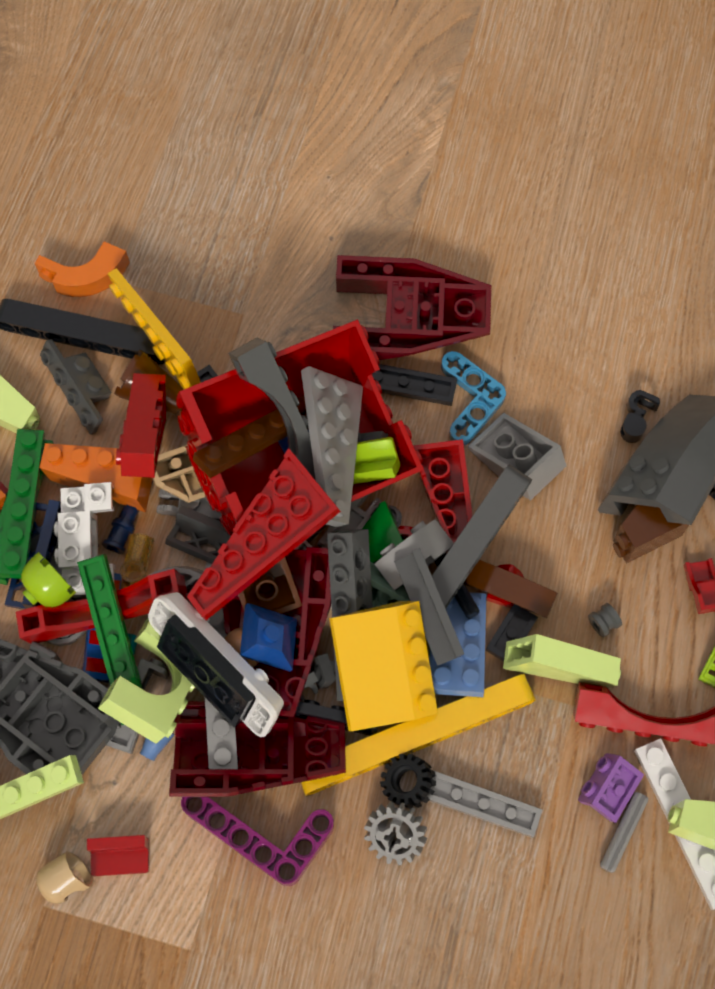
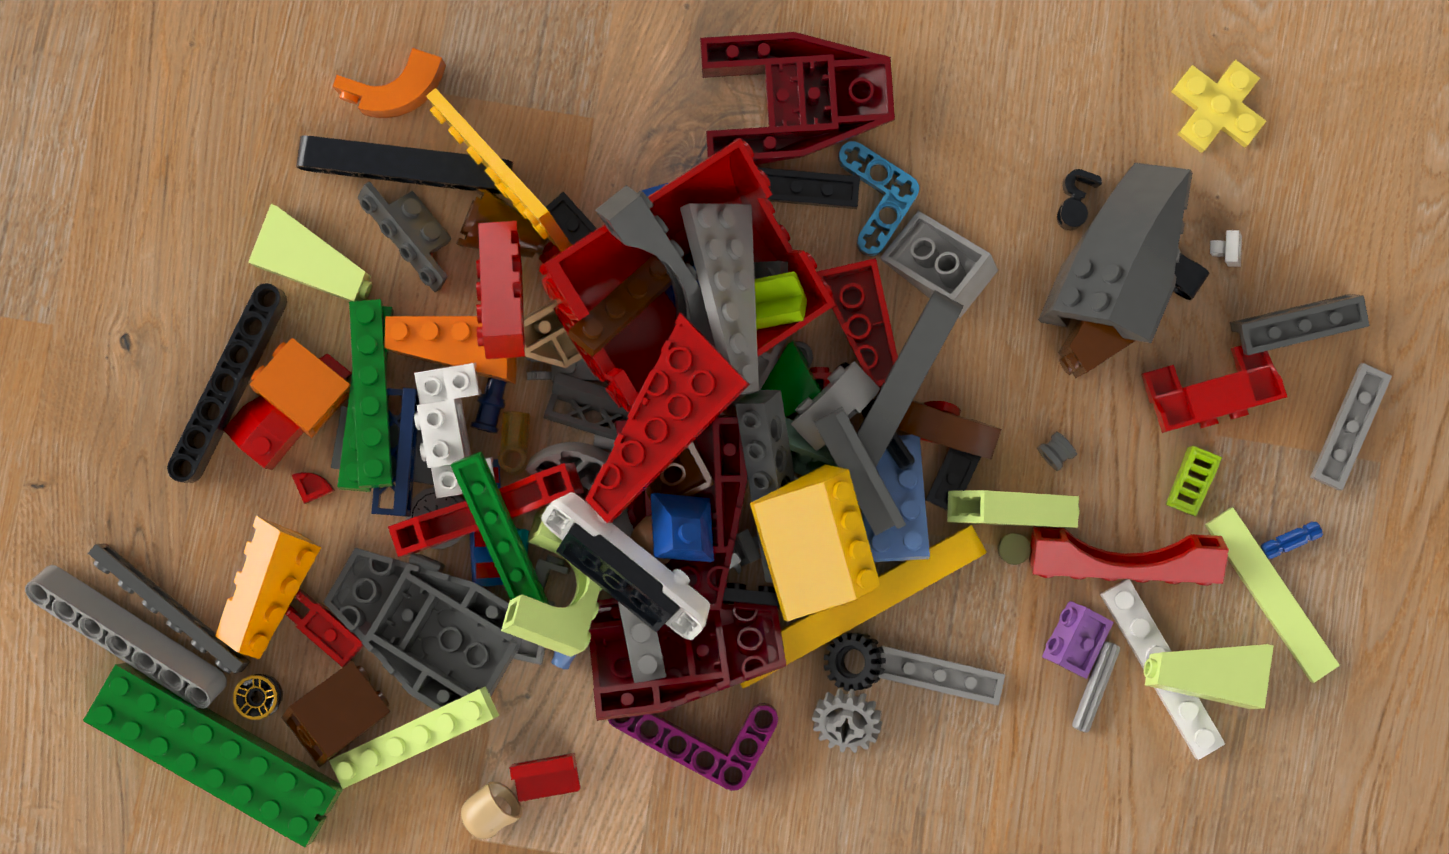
camera: 10 degrees left, 15 degrees up
(44, 583) = (417, 493): lime cylinder -> none
(560, 701) = (1014, 548): none -> olive tile

